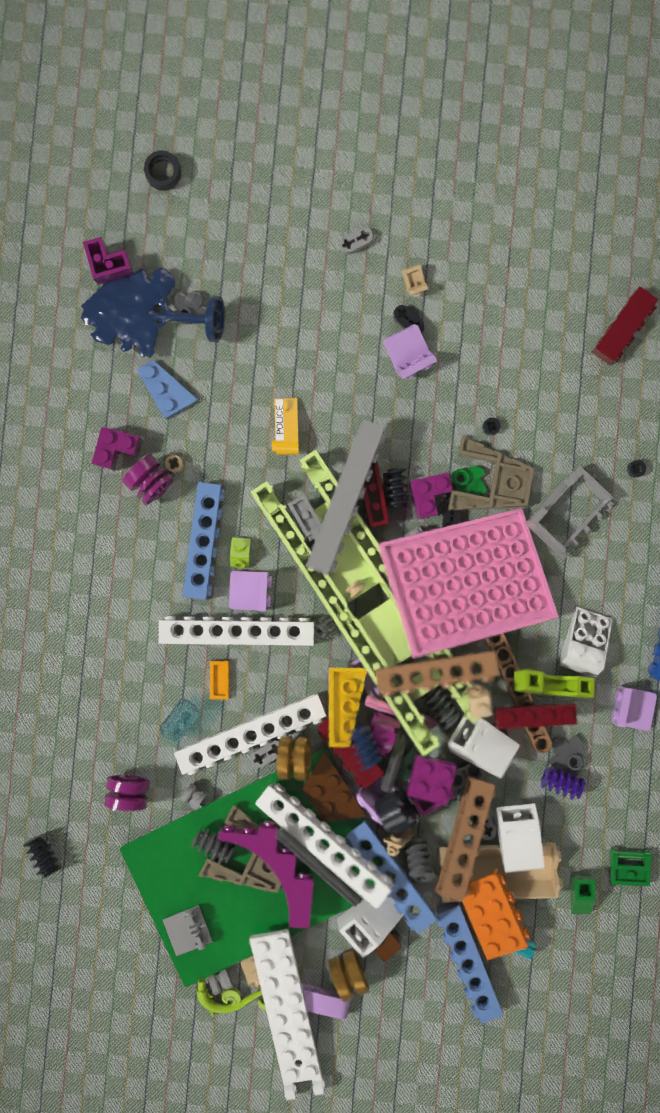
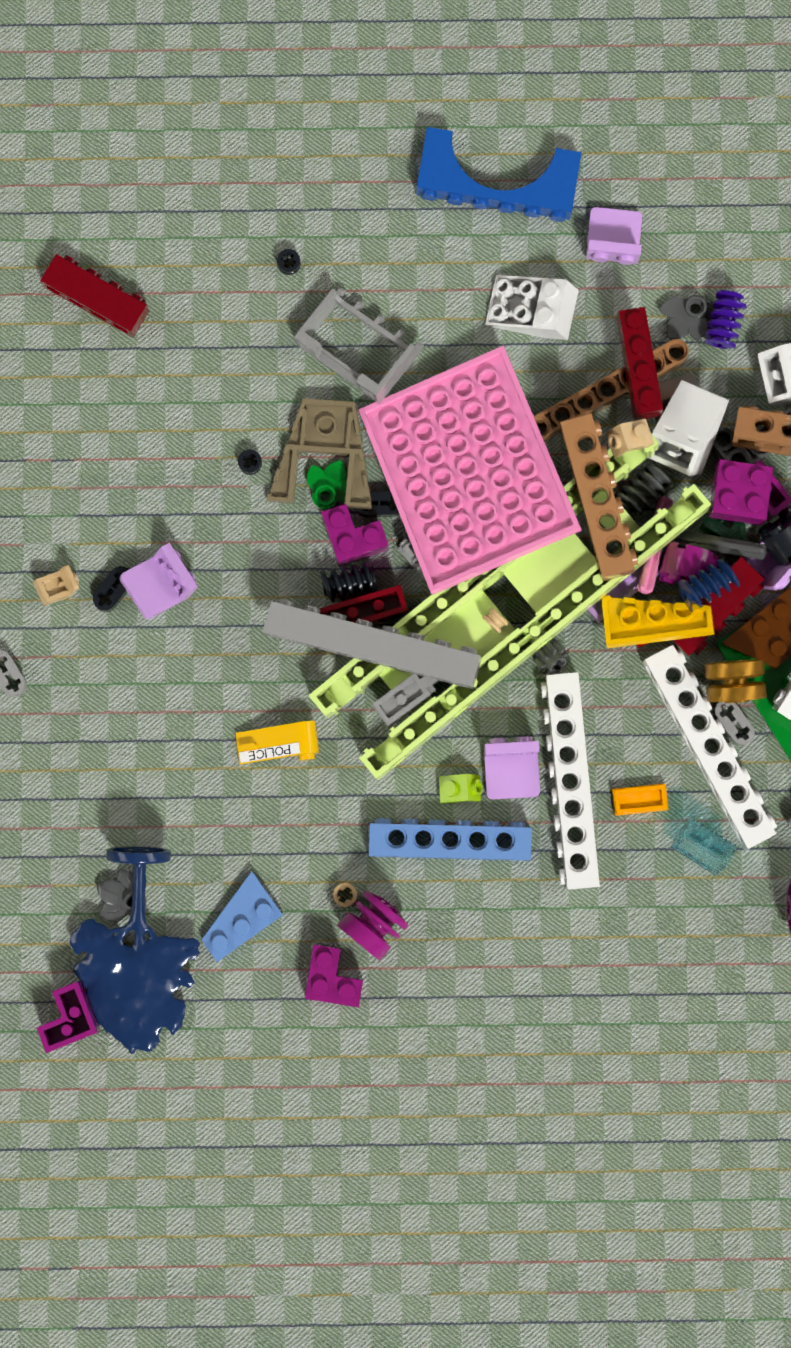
camera: 105 degrees left, 5 degrees down
(561, 686) = (595, 343): lime arch -> none

